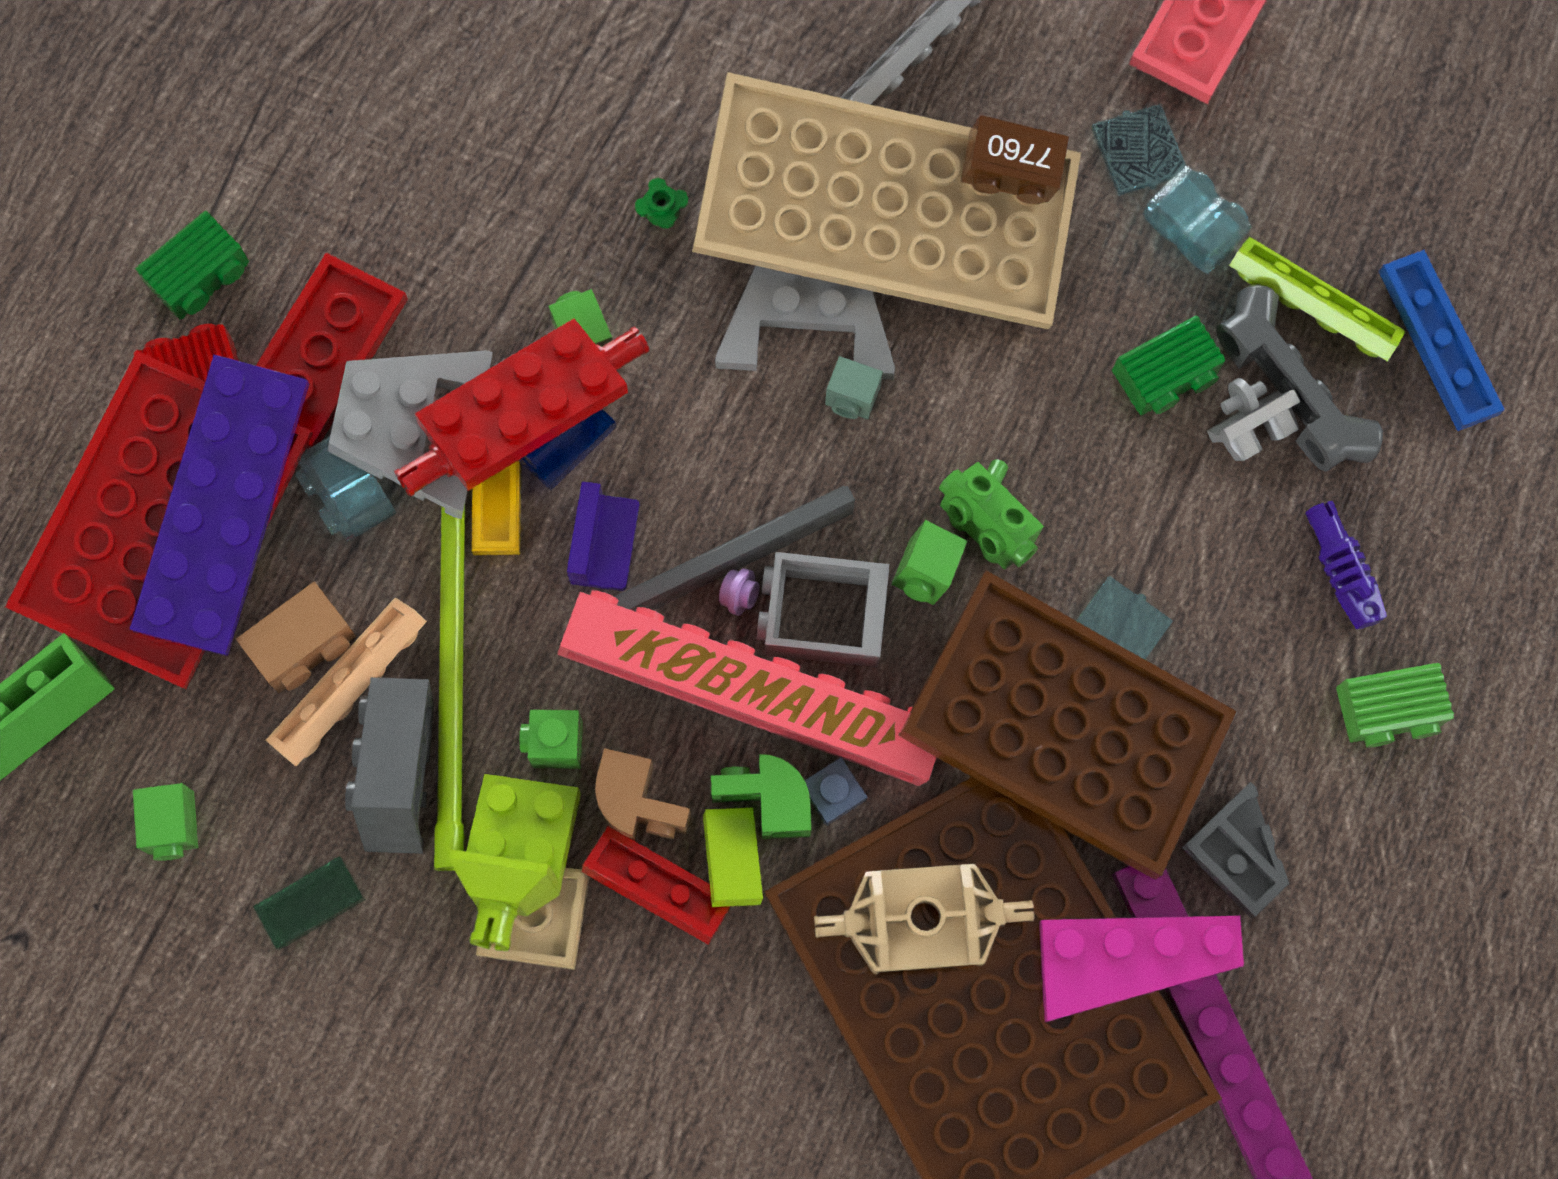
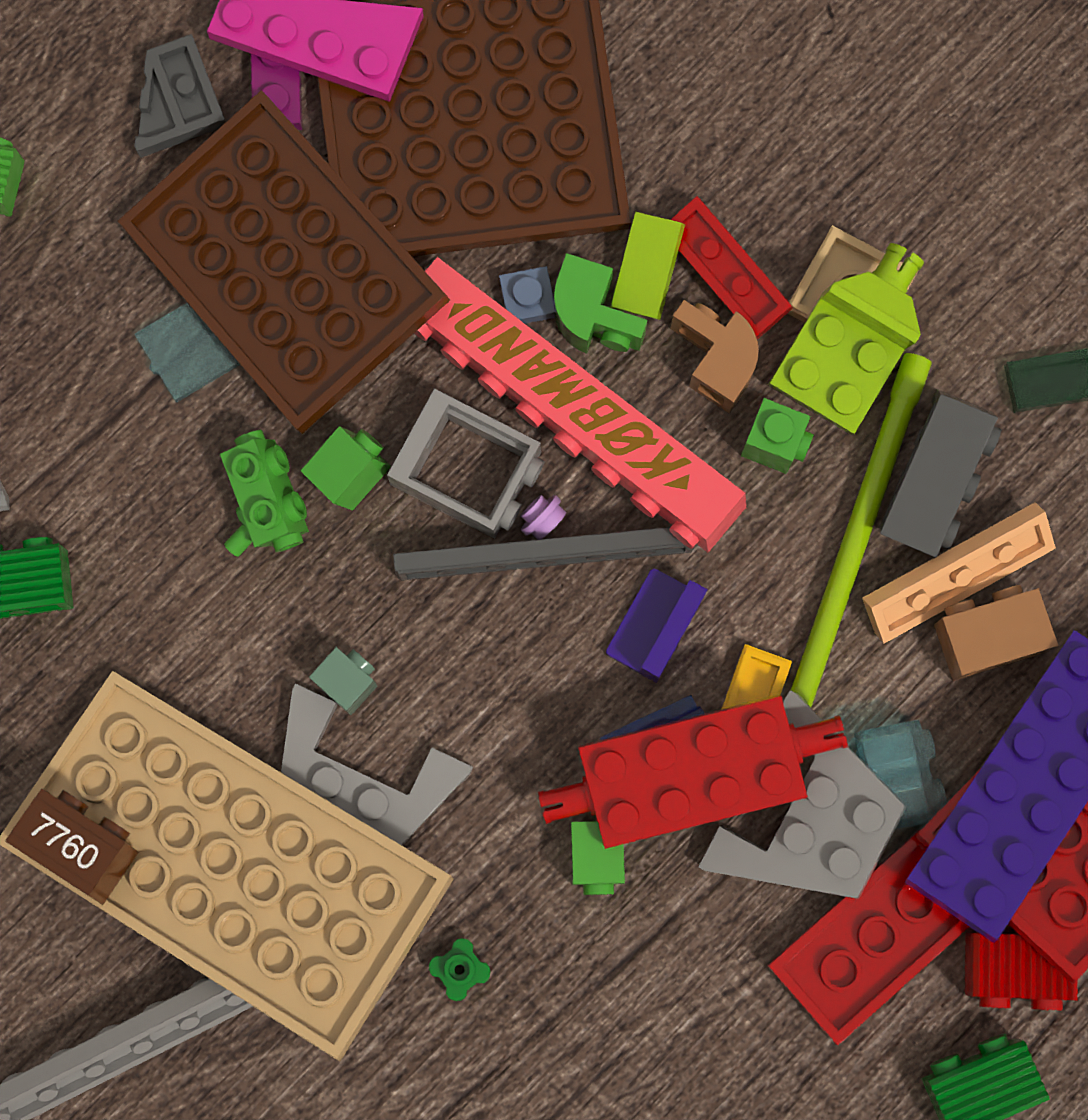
camera: 155 degrees left, 5 degrees up
(891, 942) = (522, 162): tan plate -> none

